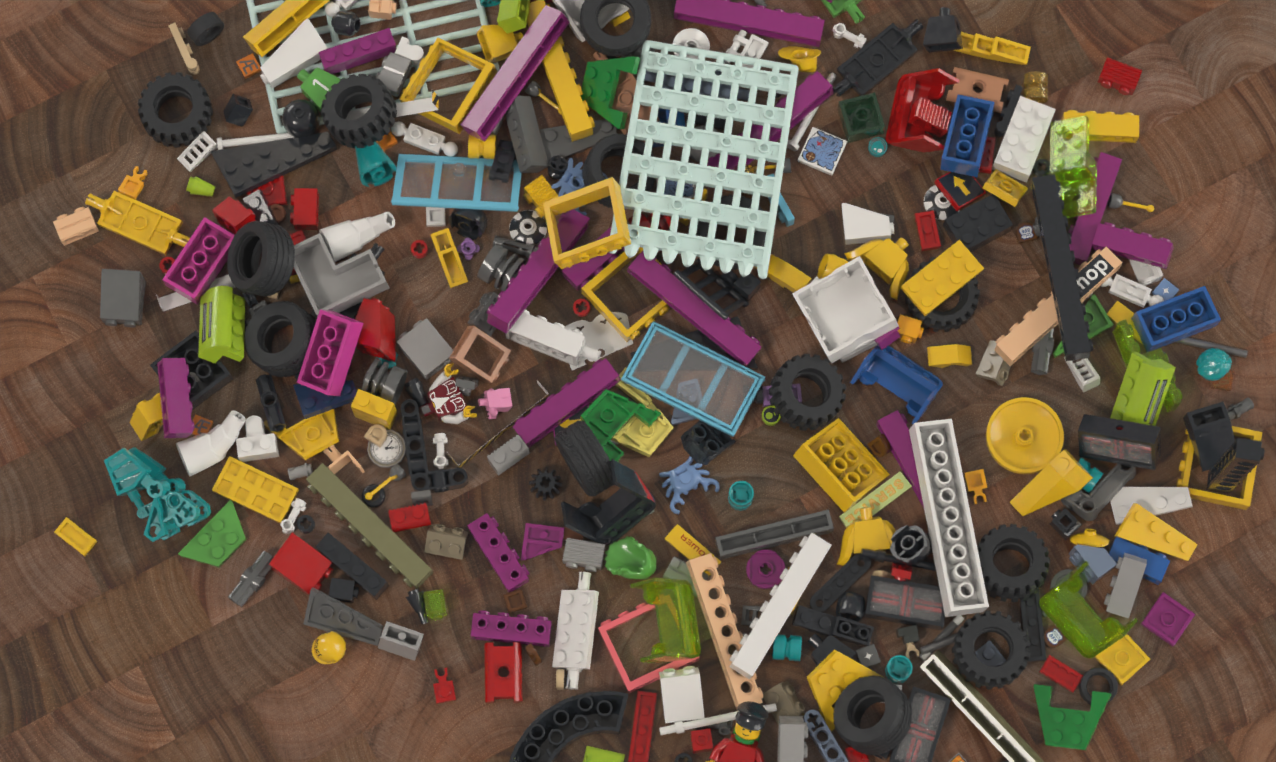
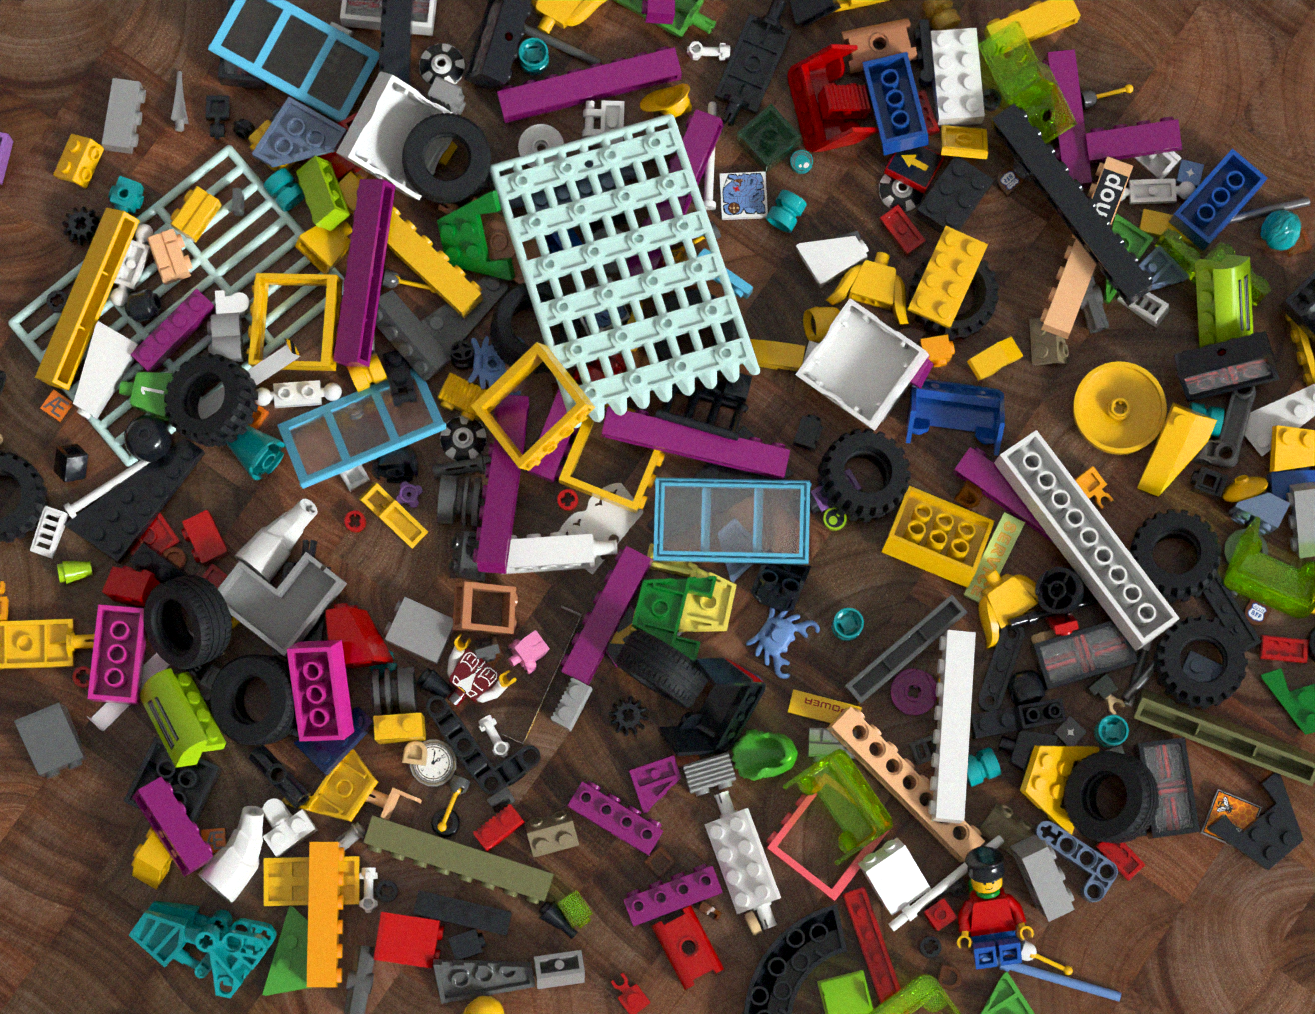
camera: 30 degrees left, 5 degrees up
(251, 516) = (323, 914): none -> light orange brick
(782, 343) = (808, 433): none -> black window
(847, 176) = (785, 212): none -> teal wheel
(1107, 351) = (1163, 269): none -> sand blue wing

